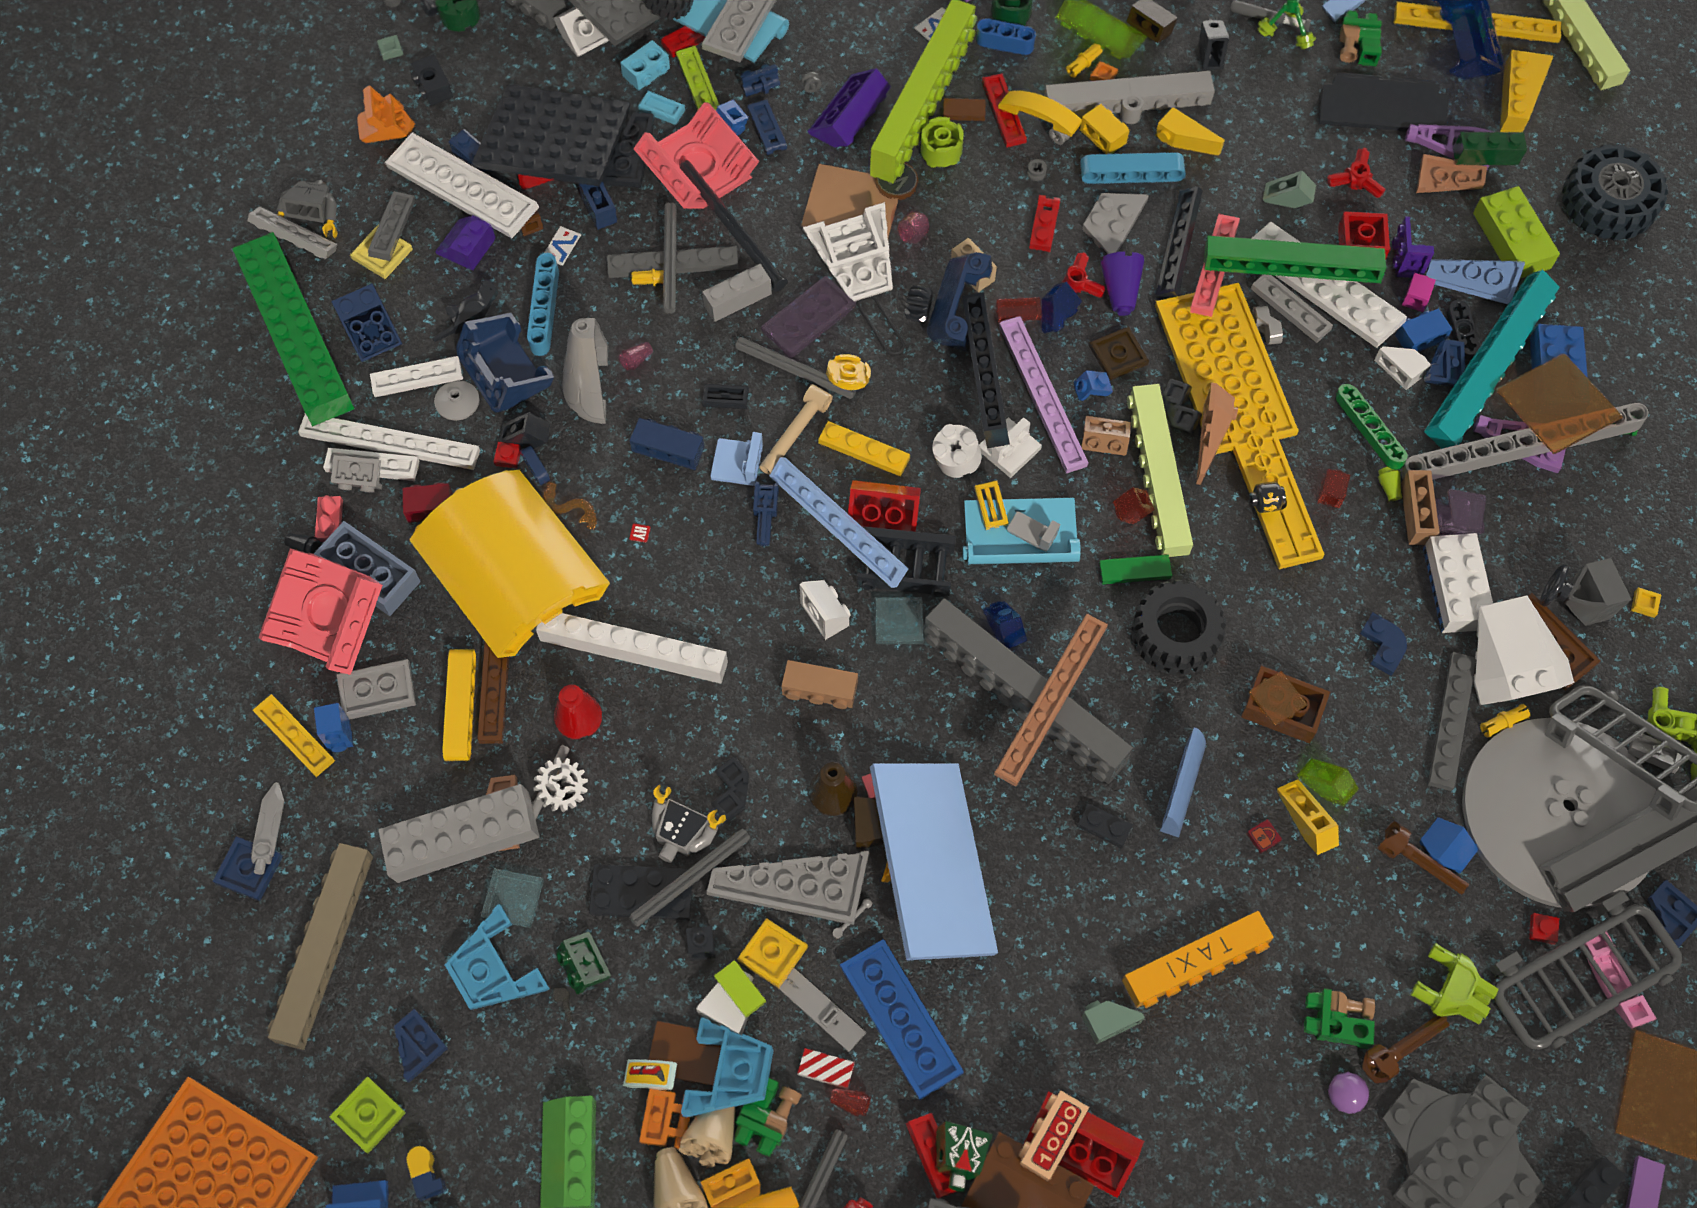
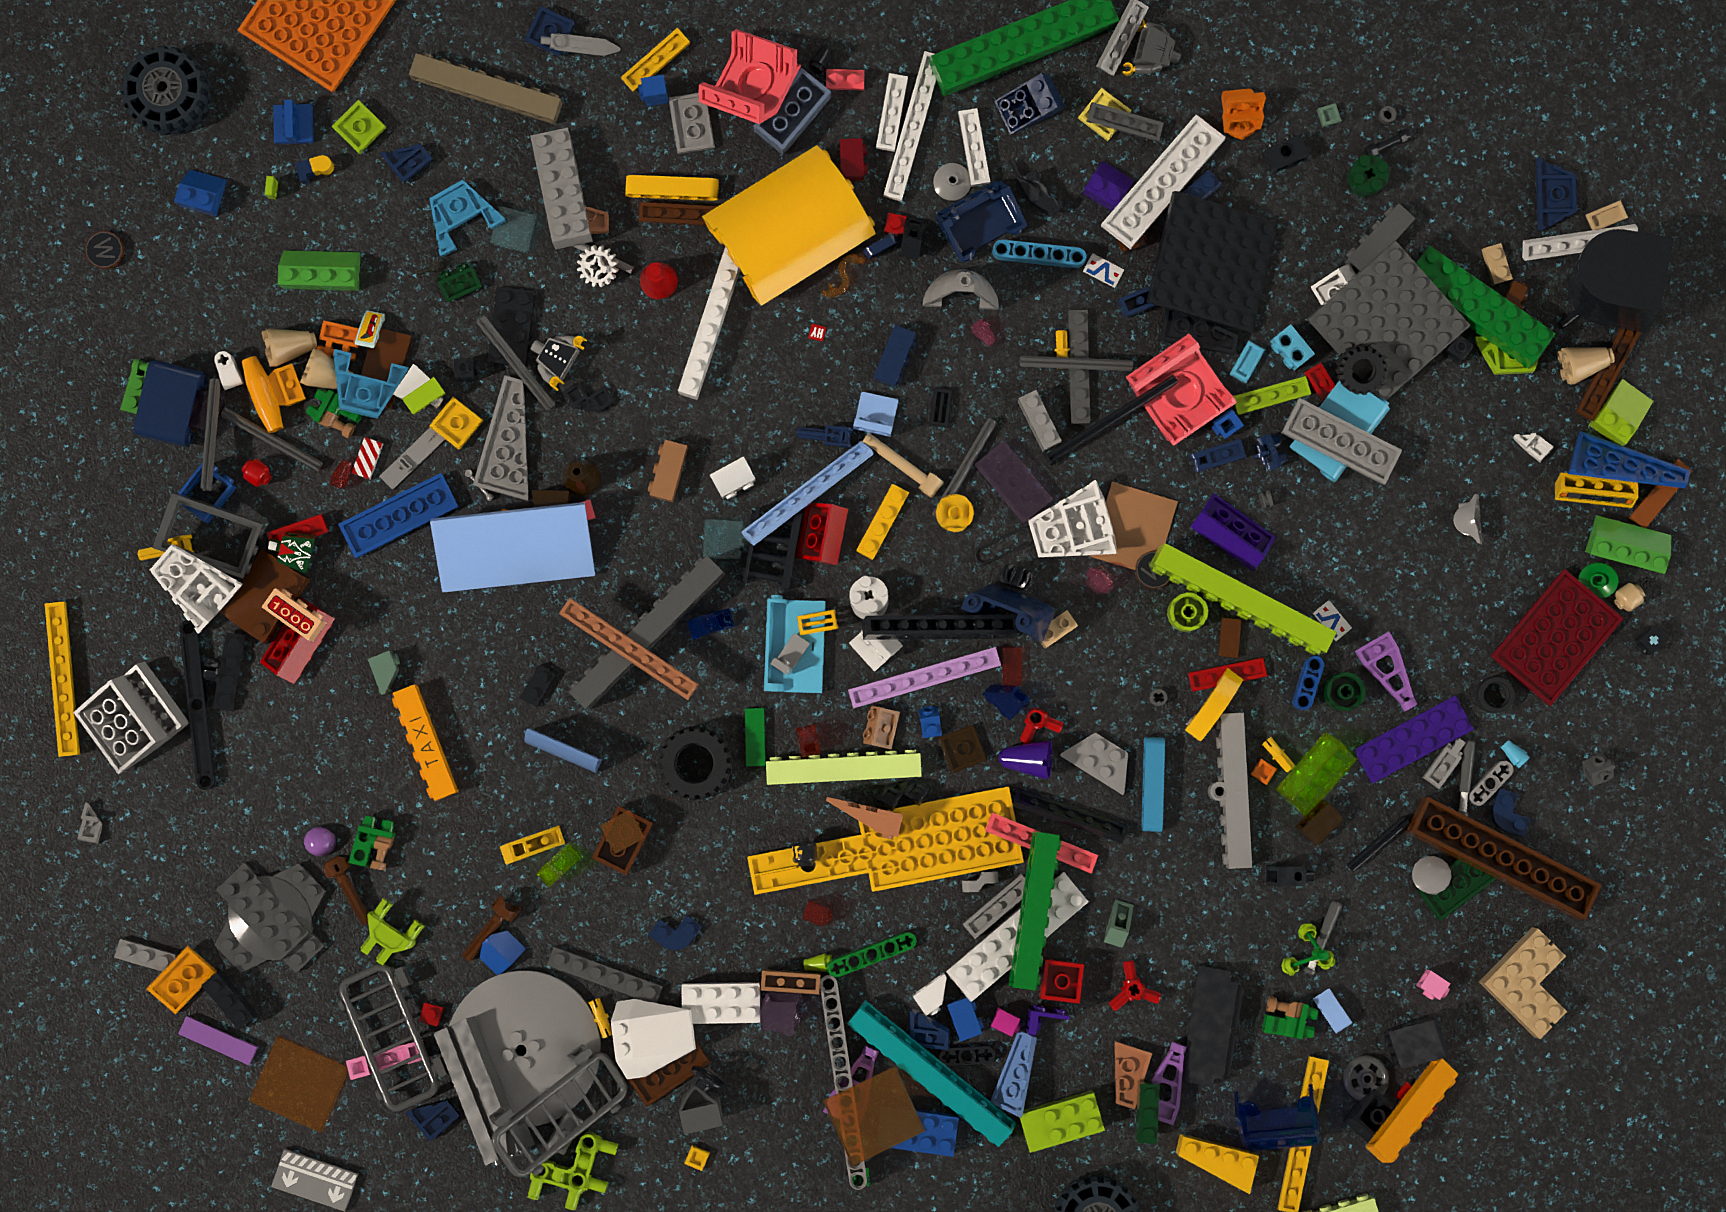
camera: 90 degrees right, 20 degrees up
(356, 472) = (879, 100): light grey bracket -> none
(1044, 224) = (1100, 698): red plate -> none
(1104, 129) = (1194, 763): yellow brick -> none
(1185, 133) = (1189, 835): yellow slope -> none
(1264, 836) = (520, 808): tile -> none

